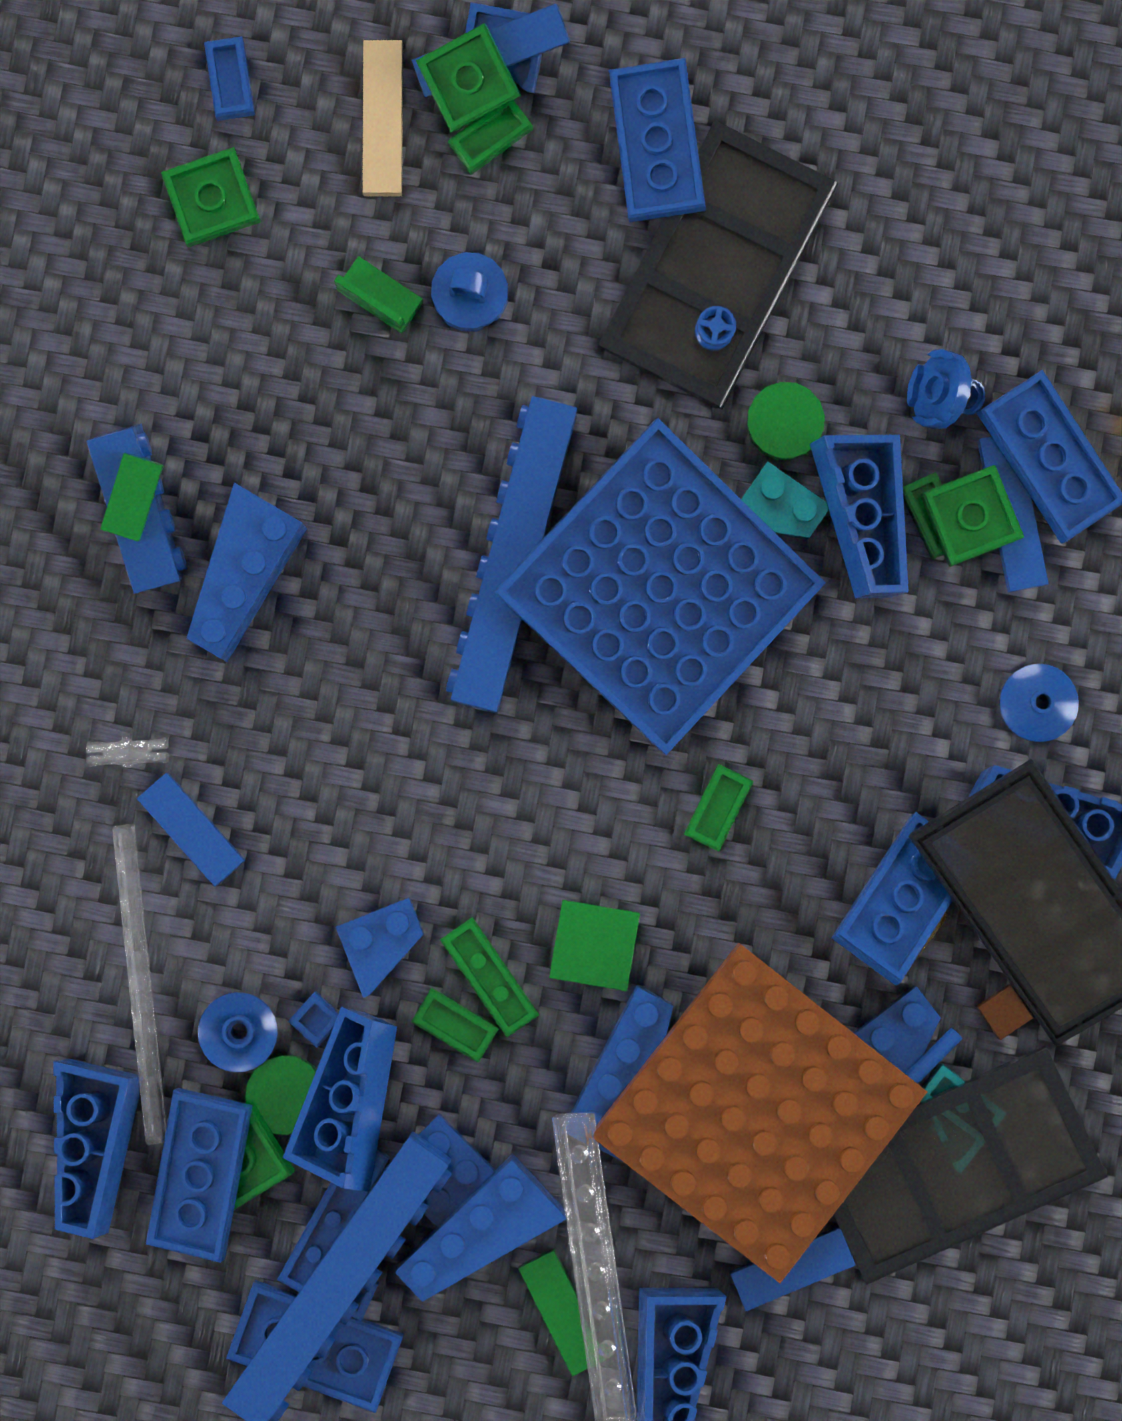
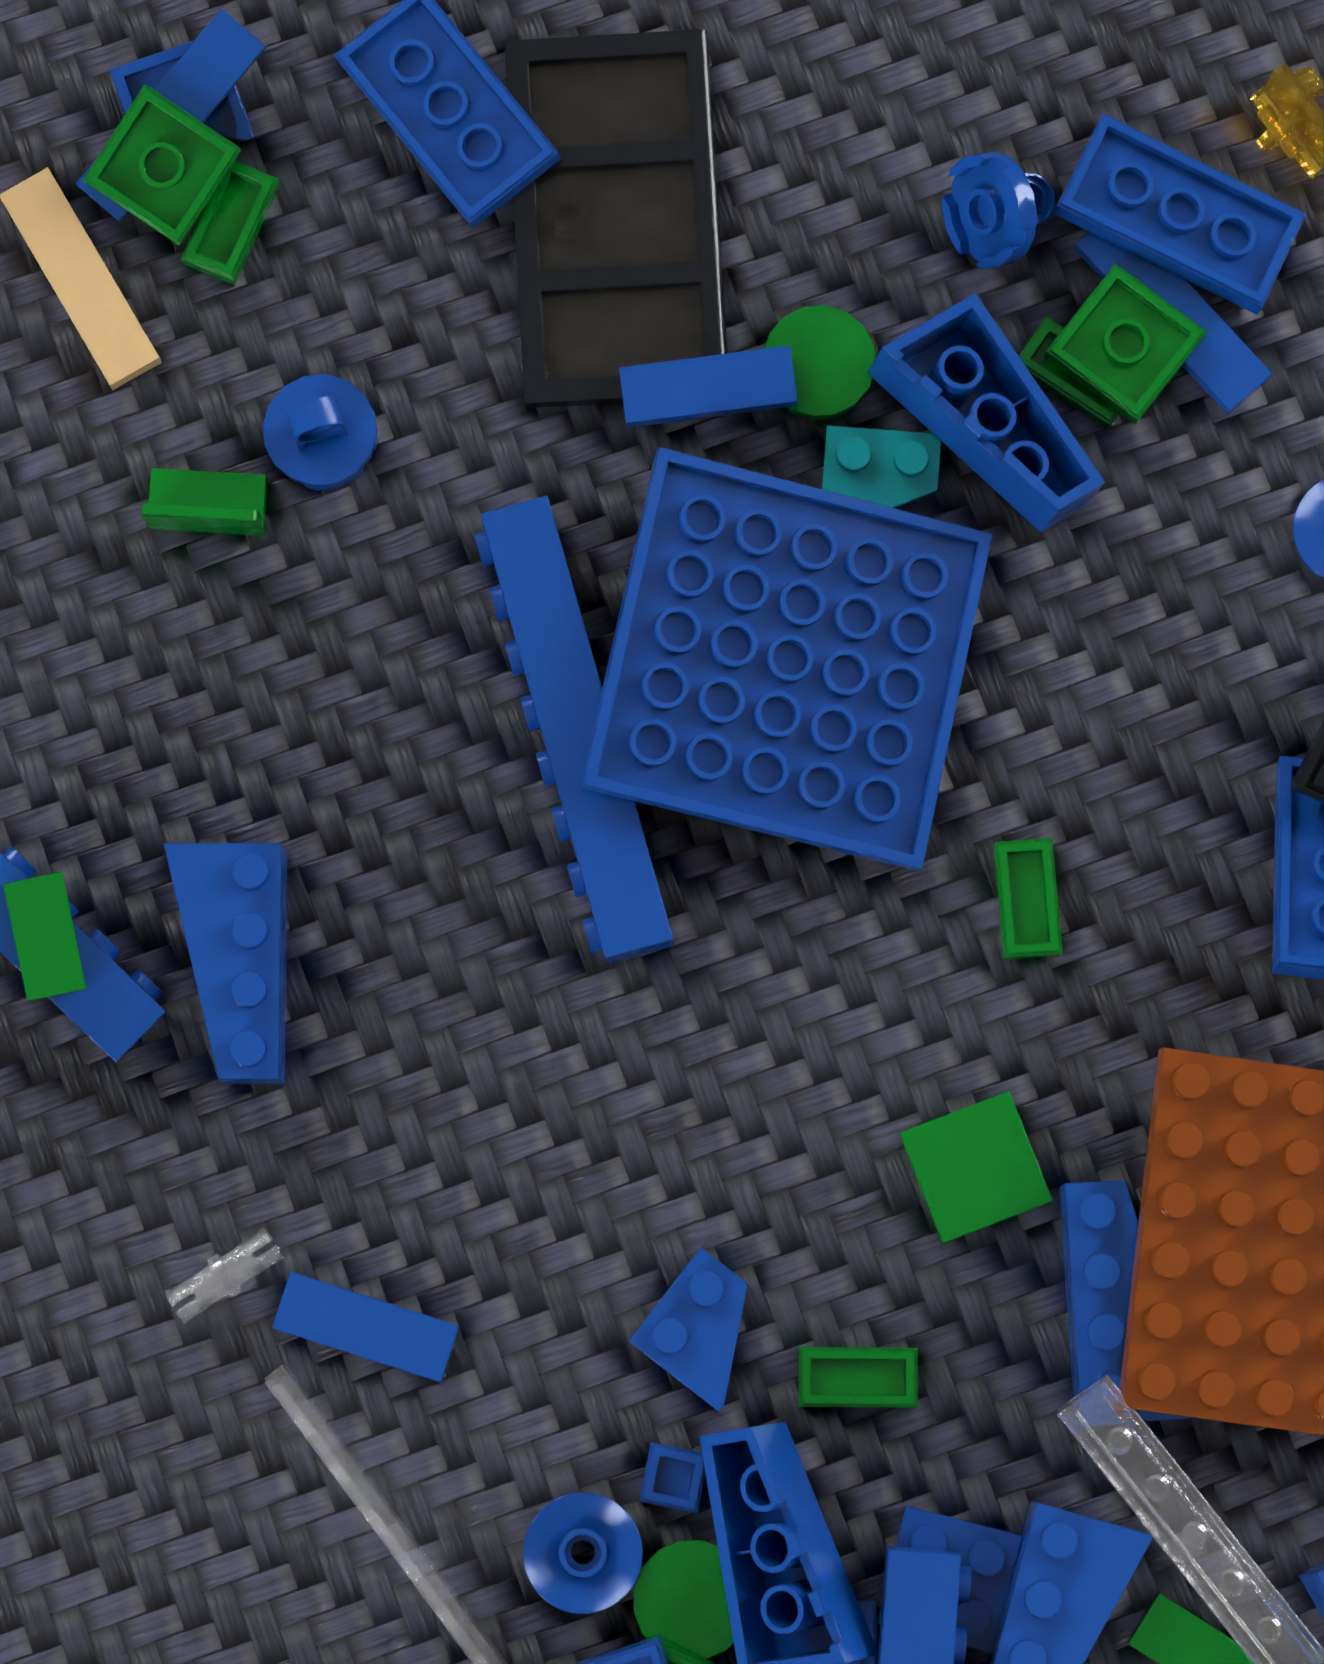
camera: 30 degrees left, 5 degrees down
(489, 977) = (865, 1288): green tile -> none
(710, 397) = (708, 386): none -> blue tile
(717, 320) = (660, 284): blue wheel -> none

